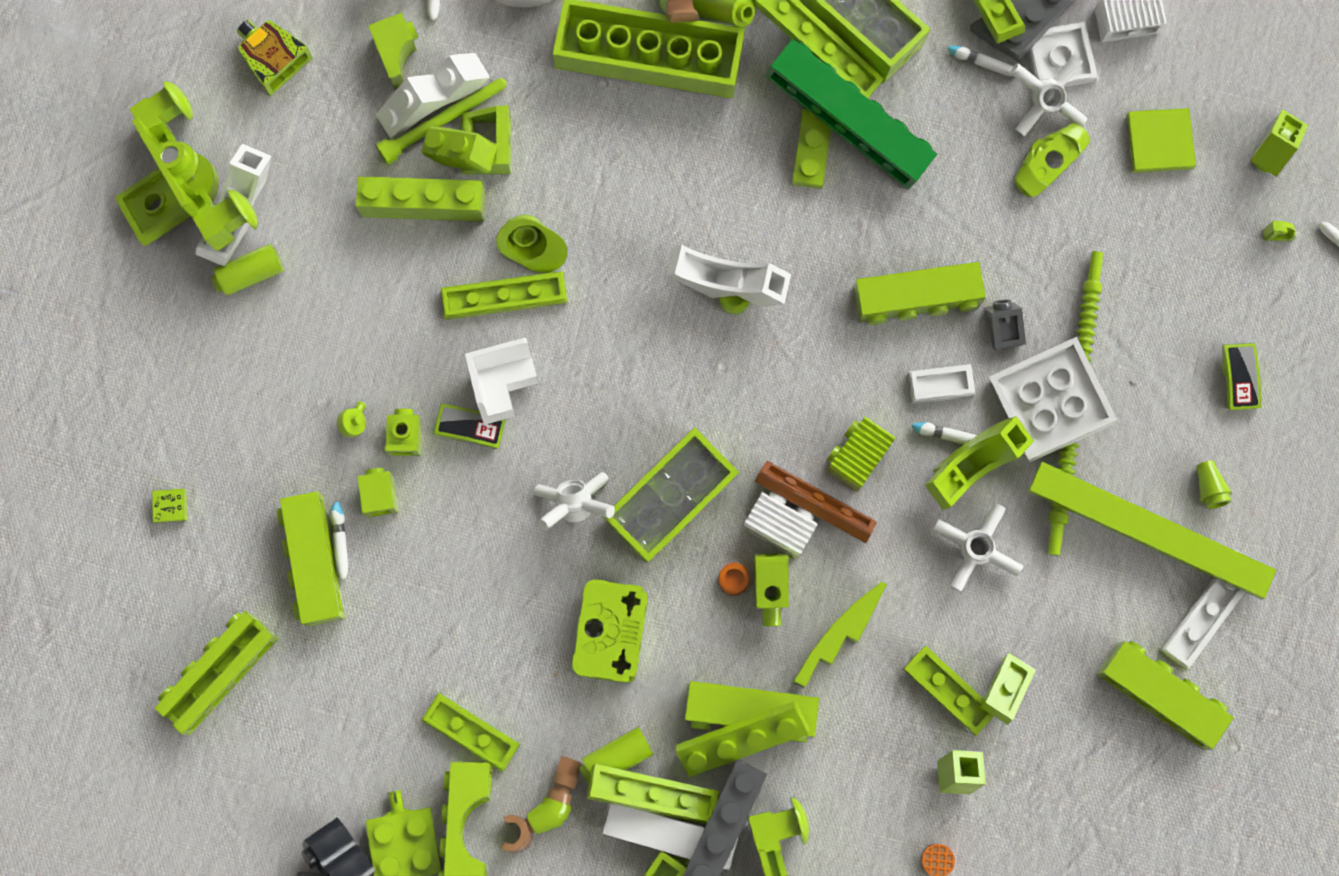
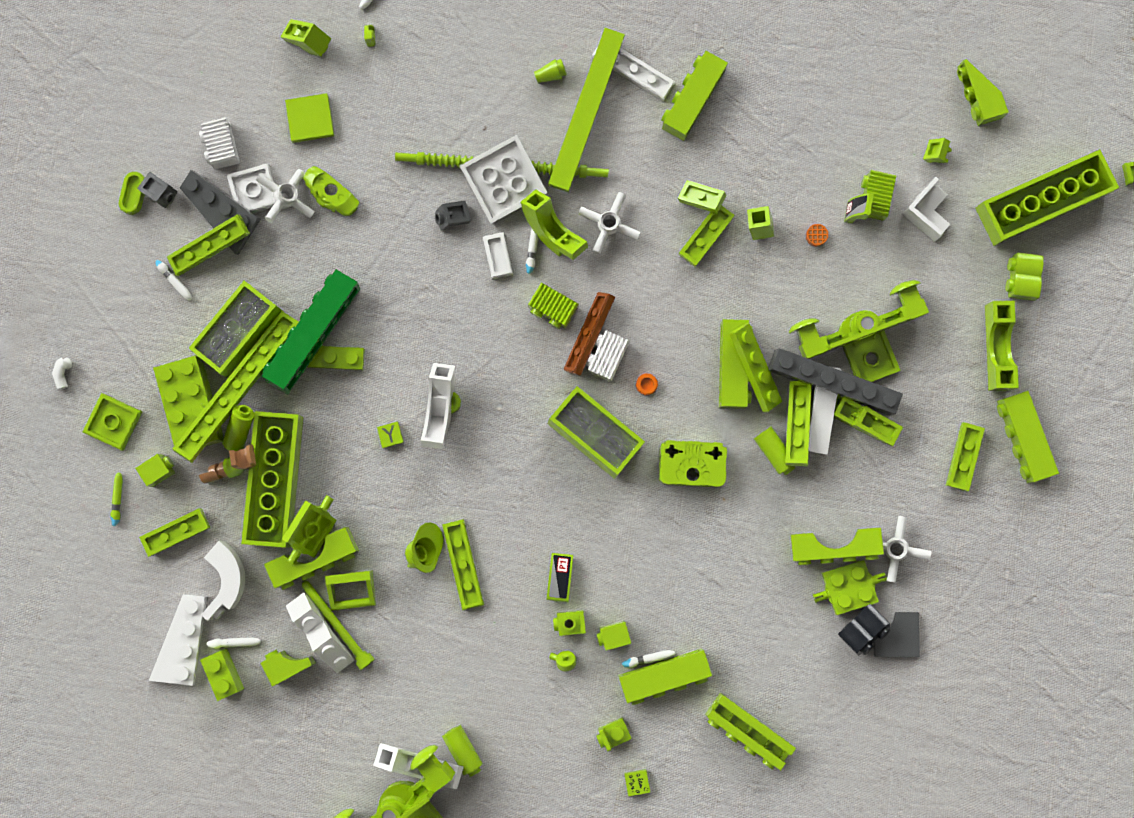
camera: 95 degrees left, 5 degrees up
(240, 478) = (613, 734): none -> lime bracket
(272, 53) = (297, 756): torso -> none
(420, 199) = (399, 632): lime brick -> none
(459, 149) = (361, 607): lime brick -> none
(471, 732) = (769, 551): lime tile -> none
(498, 371) = (522, 562): white panel -> none
(547, 126) = (337, 546): none -> lime arch
(551, 811) = (814, 489): piece -> none
(573, 501) = (607, 497): white bar -> none
(574, 89) = (309, 529): none -> lime plate
(696, 212) = (390, 434): none -> lime tile
(768, 571) = (642, 358): lime torso -> none
(847, 626) = (670, 304): lime slope -> none
(919, 292) = (435, 275): lime brick -> none
(982, 60) = (256, 257): white piece -> none
(1242, 376) = (473, 55): slope -> none

